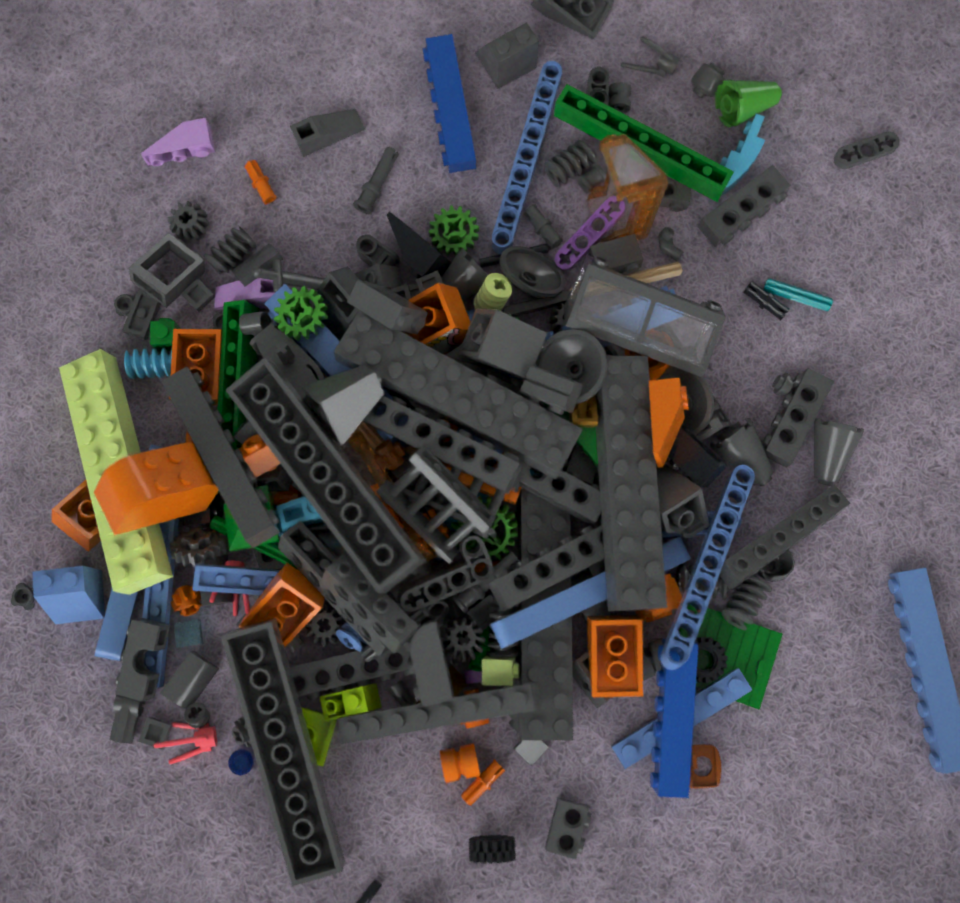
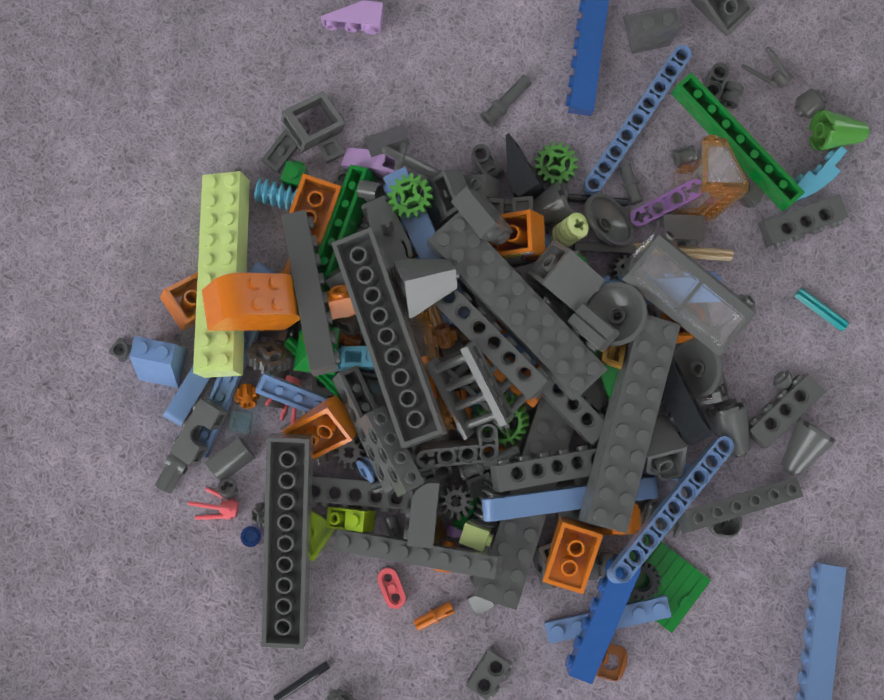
camera: 20 degrees right, 5 degrees up
(119, 304) = (265, 138): dark grey plate -> none
(155, 731) = (191, 490): dark grey plate -> none
(193, 226) = (344, 91): dark grey gear -> none
(229, 250) = (368, 121): dark grey piece -> none
(260, 182) = (410, 70): orange axle -> none
(325, 129) = (478, 44): dark grey slope -> none
(423, 766) = (391, 587): none -> coral plate
(459, 763) = (421, 595): orange wheel -> none
(492, 849) = (424, 670): black tyre -> none
(568, 162) = (669, 136): dark grey piece -> none
(666, 244) = (727, 232): dark grey arm -> none
(667, 407) = (681, 374): orange slope -> none
(744, 600) = (689, 545): dark grey piece -> none
(766, 300) = (793, 306): black pin -> none

